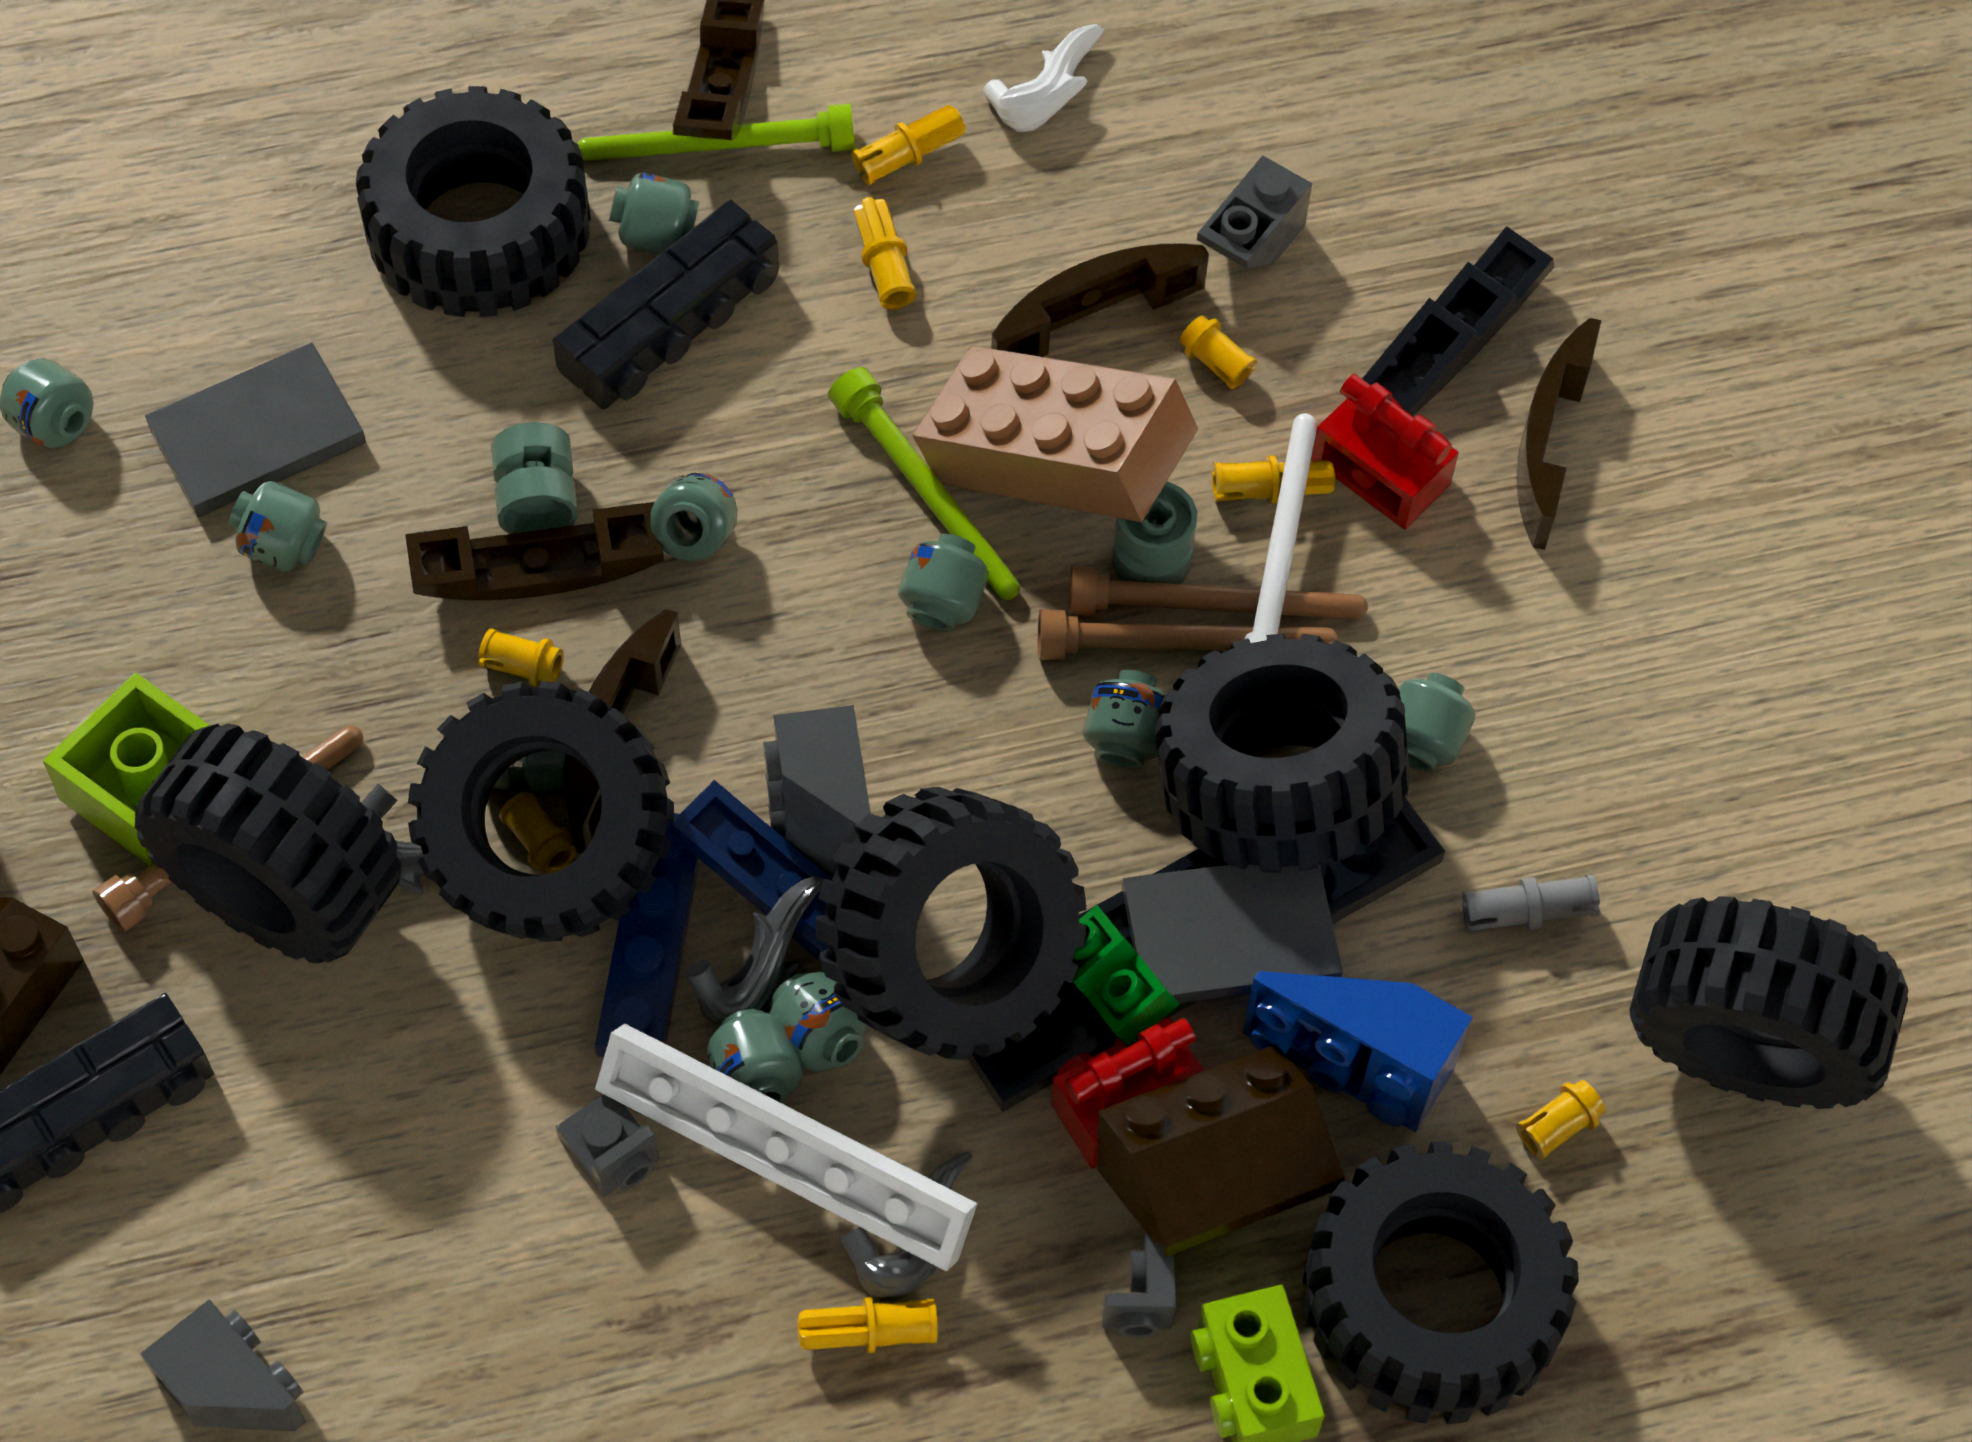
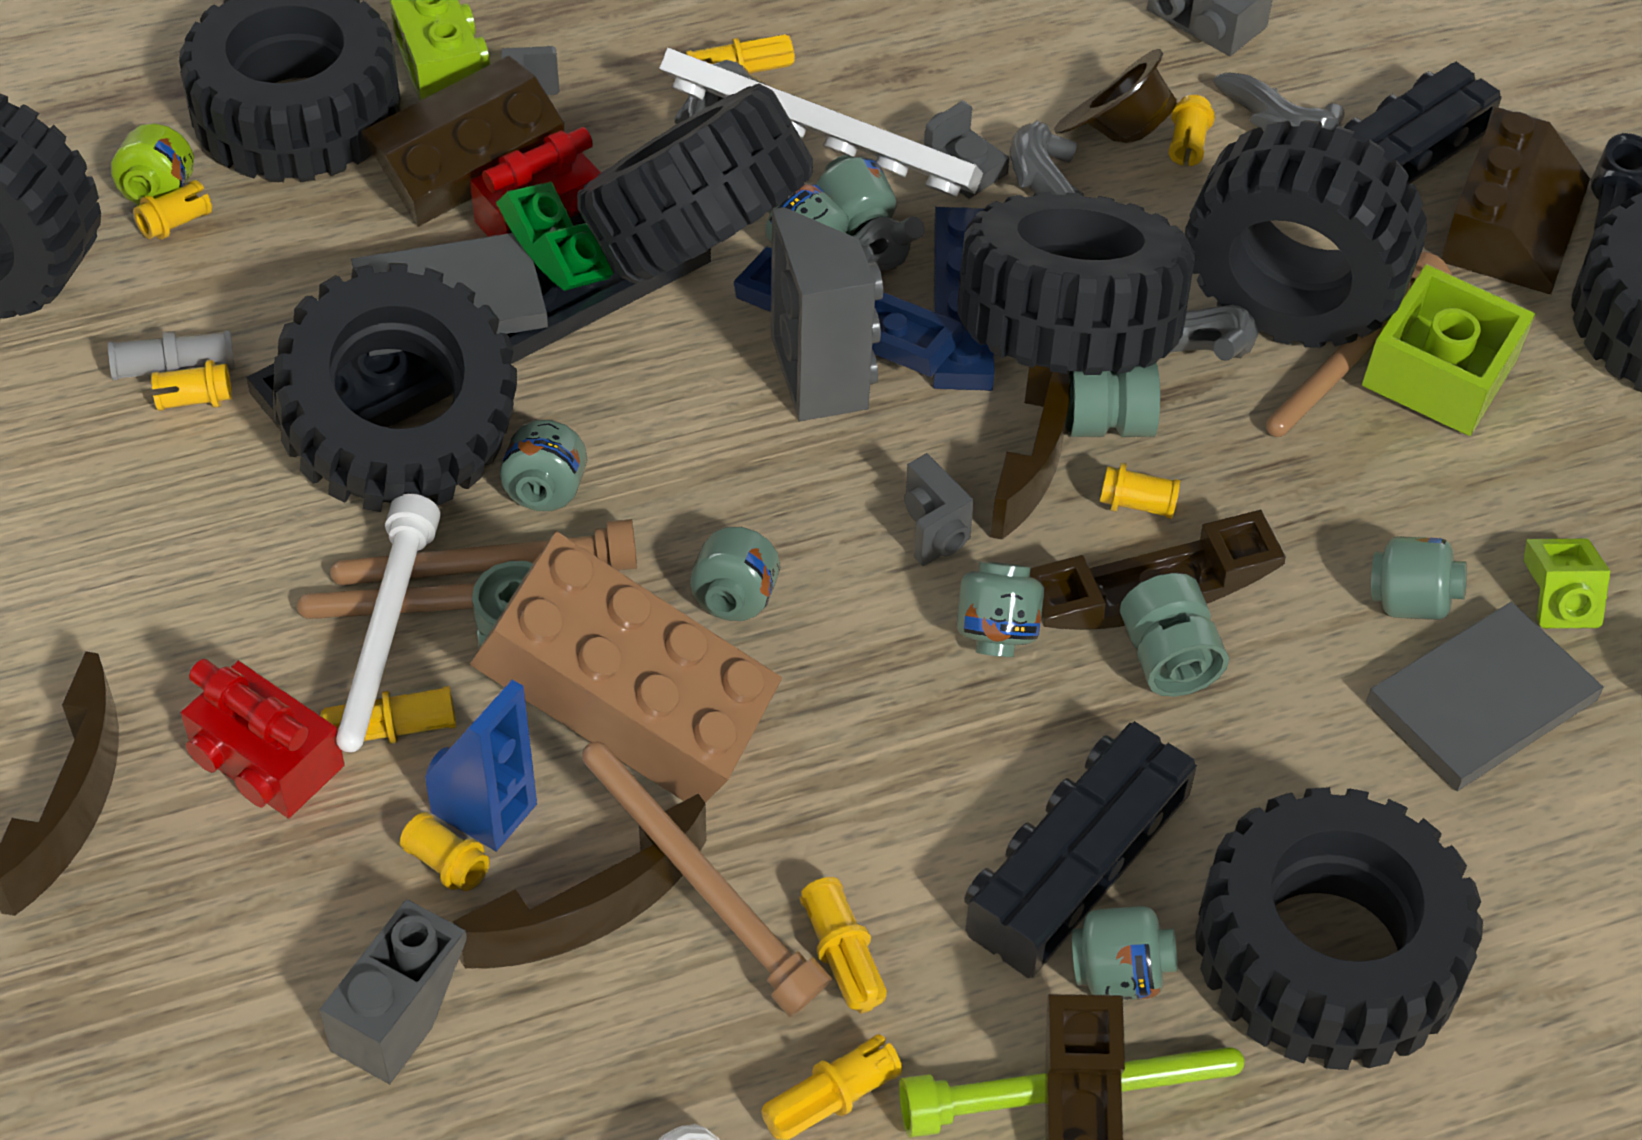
camera: 175 degrees right, 10 degrees down
(127, 525) = (1570, 582): none -> lime bracket
(203, 1166) = (1270, 106): none -> dark grey piece
(313, 1173) = (1191, 120): none -> yellow pin
(409, 1190) = (1128, 106): none -> dark brown piece
(529, 1101) = (1032, 163): none -> dark grey piece
(730, 641) = (938, 508): none -> dark grey bracket
(858, 397) = (848, 766): lime piece -> none
(929, 220) = (791, 975): none -> medium nougat piece
(1187, 346) = (488, 773): none -> blue slope
(1361, 1037) = (324, 207): blue slope -> none
(1435, 720) = (248, 482): sand green head -> none
(1460, 321) = (154, 915): black slope -> none
(1504, 862) = (195, 386): none -> yellow pin
(1593, 1175) = (152, 162): none -> lime head

